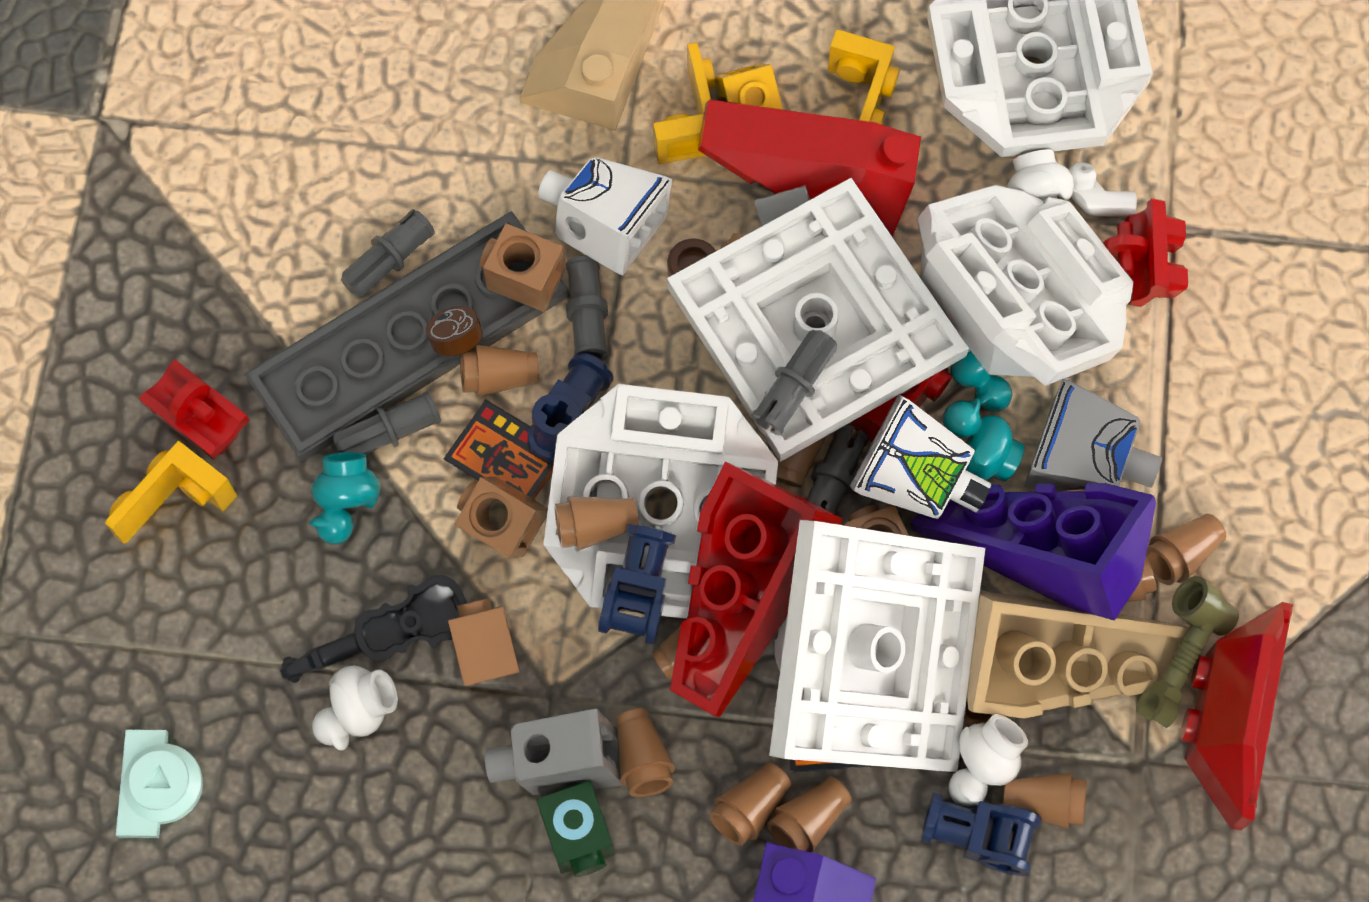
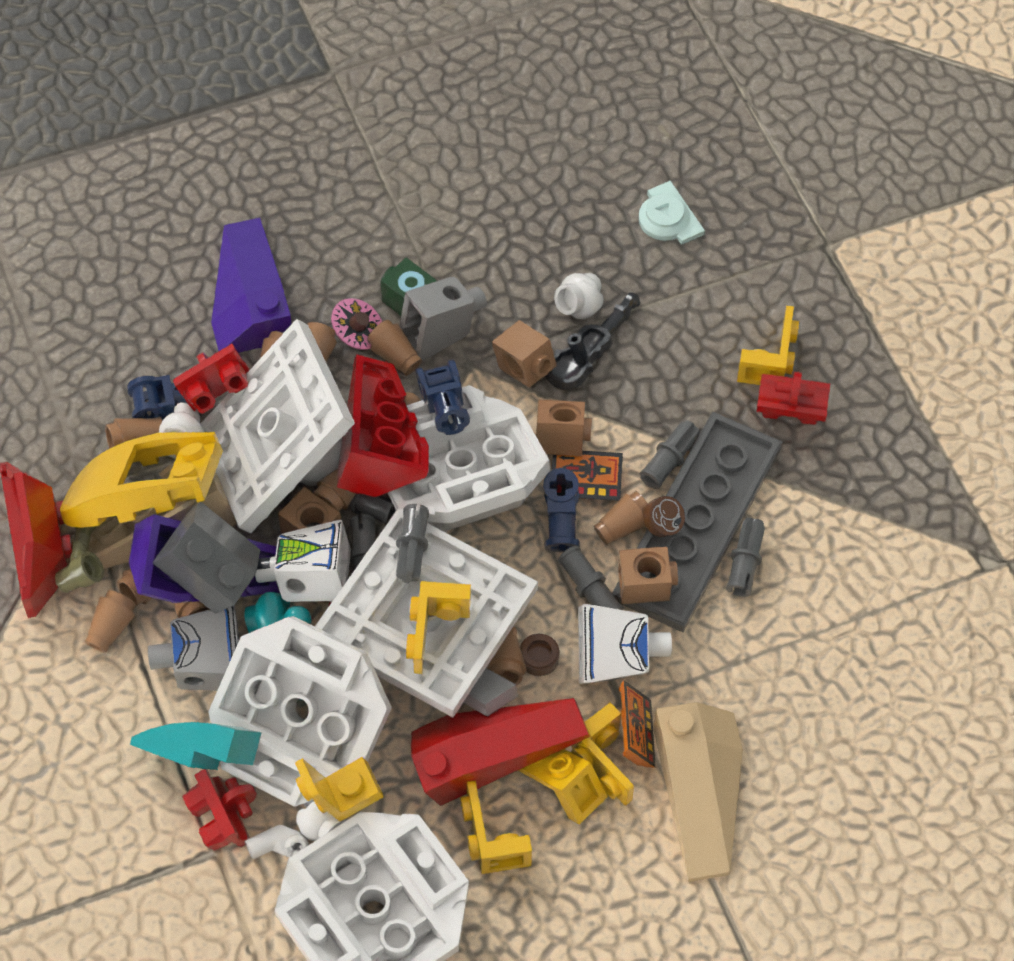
camera: 150 degrees right, 10 degrees down
(342, 485) = (668, 399): teal animal -> none
(593, 520) = (495, 420): medium nougat cone -> none
(638, 121) = (637, 726): none -> piece
(672, 821) = (354, 322): none -> piece
(800, 289) = (437, 599): none -> yellow bracket
(896, 781) = (212, 378): none -> red hips
(1024, 167) = (342, 791): none -> yellow bracket
(1044, 504) = (209, 558): none -> dark grey slope
(1134, 709) = (101, 489): none -> yellow slope
(1154, 308) = (200, 744): none -> teal slope

